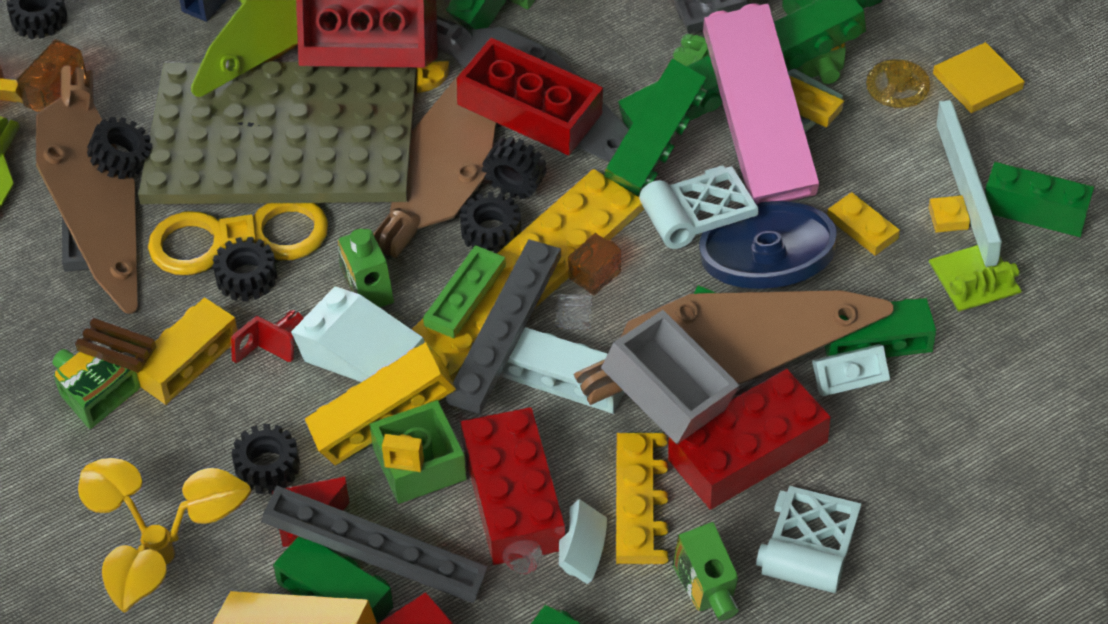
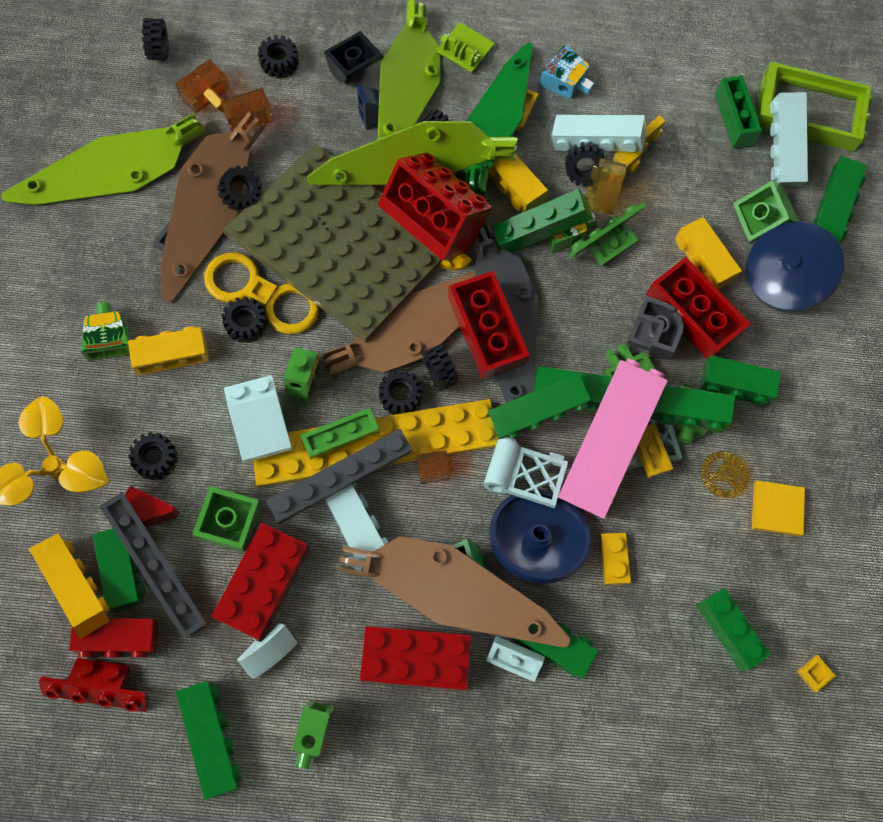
camera: 30 degrees right, 20 degrees up
(118, 340) = (119, 308): reddish brown tile -> none
(270, 337) = (222, 378): red bracket -> none
(403, 452) = (204, 524): yellow plate -> none
(407, 383) = (234, 475): yellow brick -> none
(531, 557) = (231, 634): clear piece -> none
(574, 311) = (397, 488): clear tile -> none
(636, 499) = (325, 642): yellow hinge -> none
(669, 376) = (383, 601): light grey piece -> none
(805, 558) = (374, 762): light aqua piece -> none
(949, 214) = (672, 592): yellow plate -> none
(969, 183) = (699, 585): light aqua tile -> none
(971, 282) = (648, 650): lime hinge -> none

